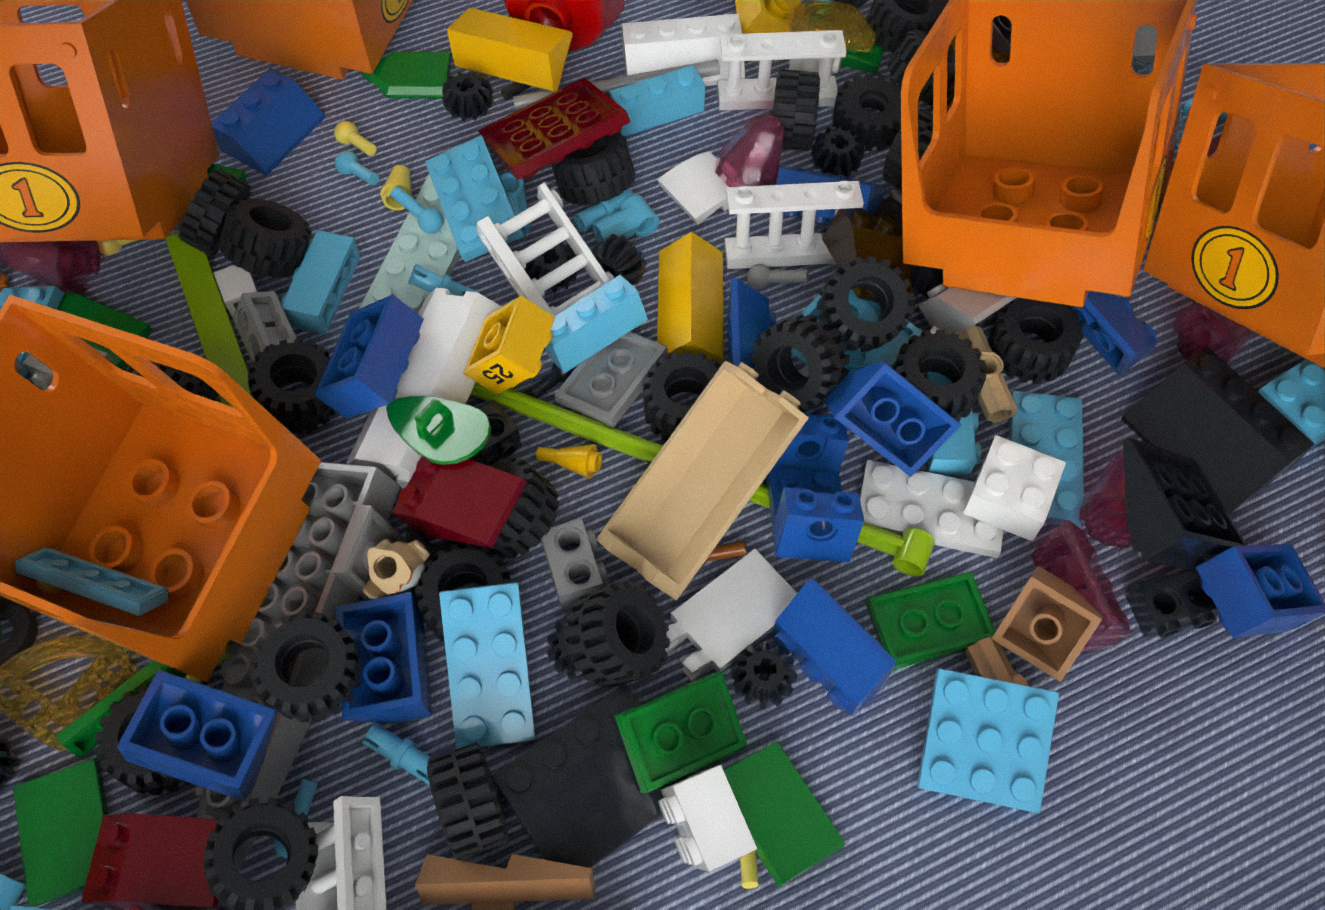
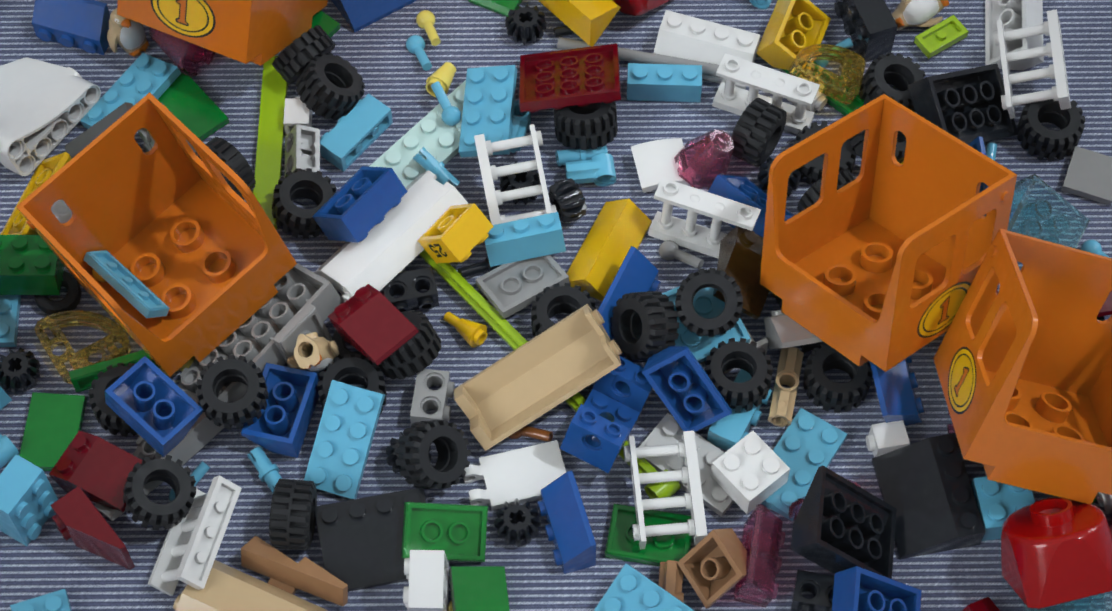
camera: 25 degrees right, 0 degrees up
(439, 427) = (381, 272): shield -> none
(965, 545) = (689, 474): none -> white fence
(1130, 385) = (886, 437): none -> white brick

